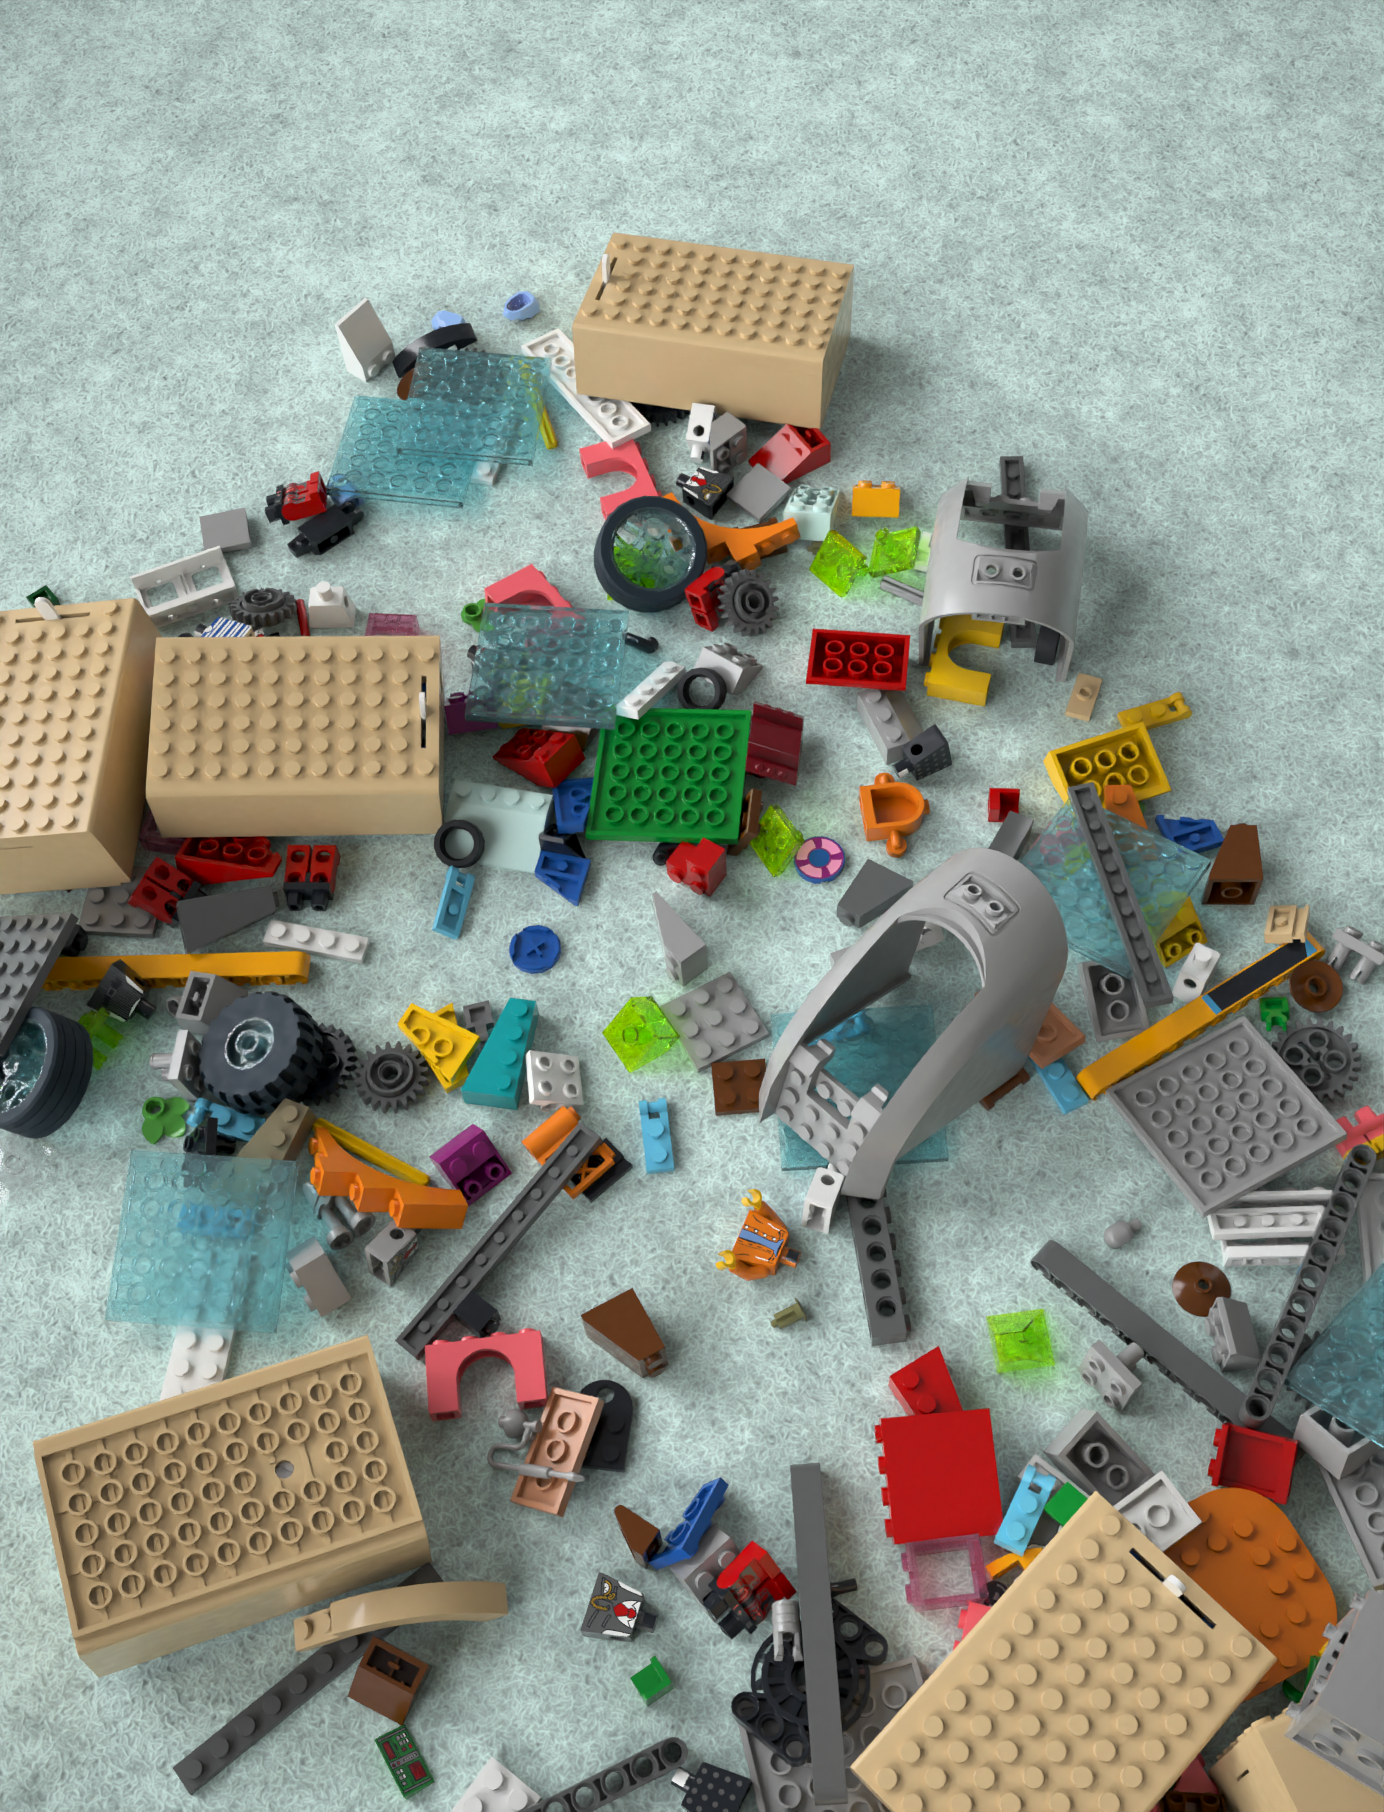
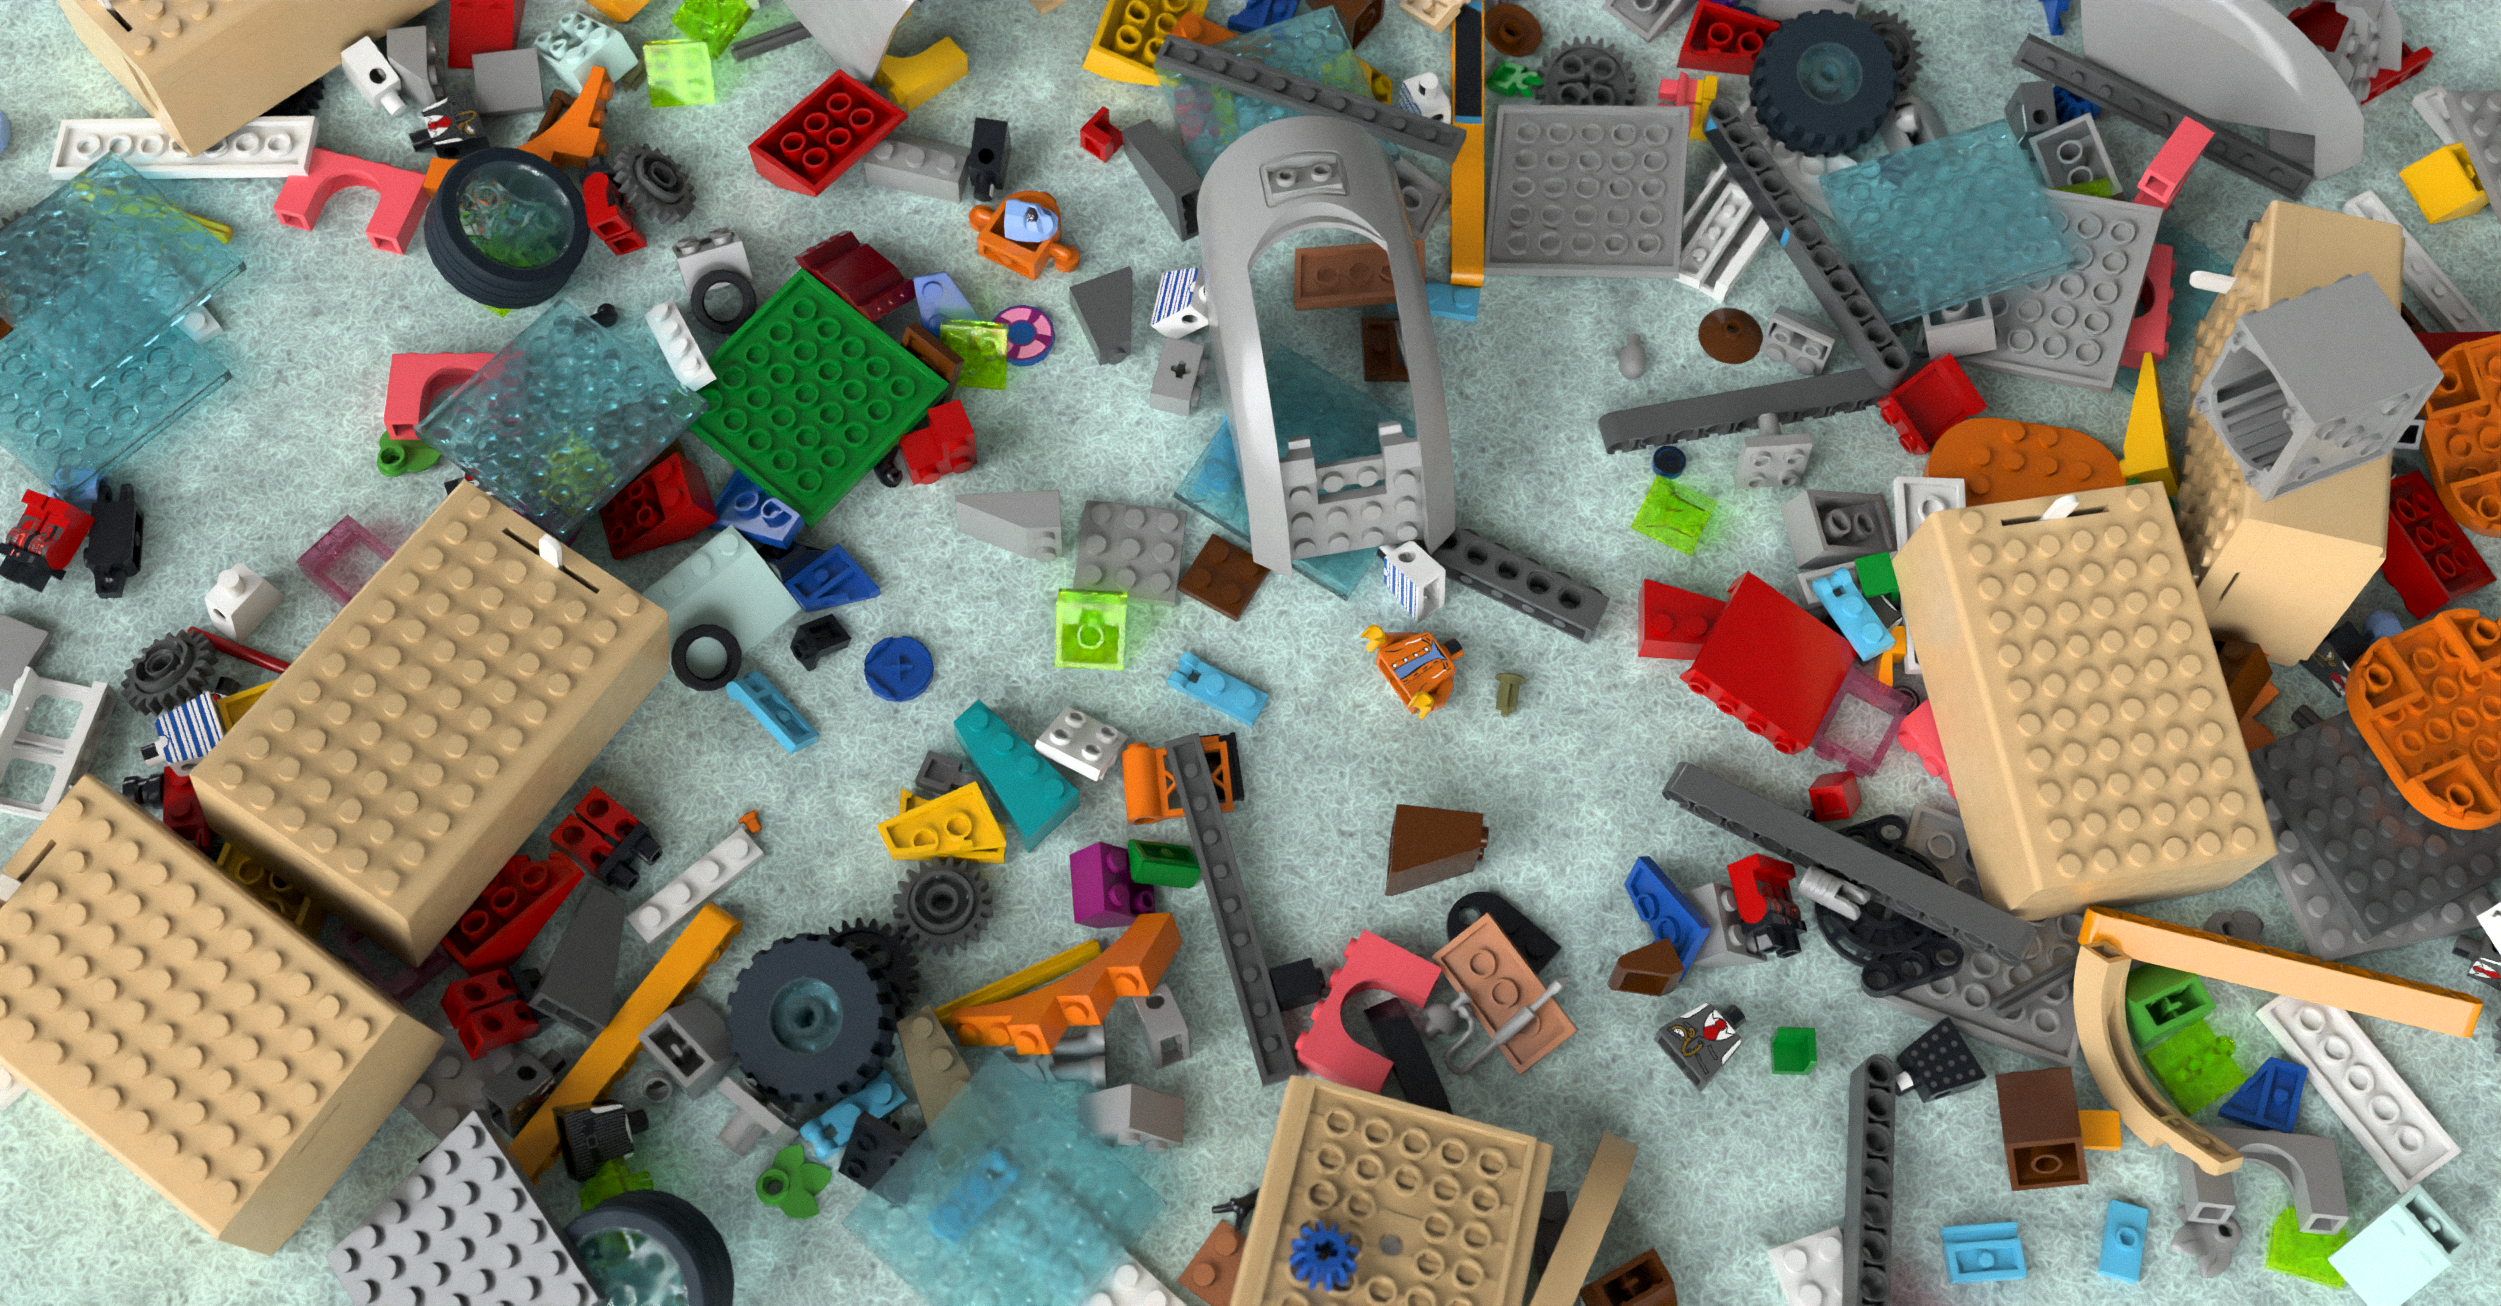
camera: 65 degrees left, 5 degrees up
(127, 937) = (521, 1090): none -> dark grey torso
(226, 1423) = (1310, 1247): none -> blue gear
(378, 941) = (750, 821): none -> orange piece
(468, 1427) = (1406, 1049): none -> black slope
(502, 1177) = (1163, 864): none -> green slope
(520, 894) = (818, 640): none -> black bracket
(798, 801) = (939, 299): none -> wing
(877, 1591) = (1835, 796): none -> red panel
(891, 803) = (1029, 221): none -> light blue rock
(1057, 1310) = (1668, 462): none -> black tile

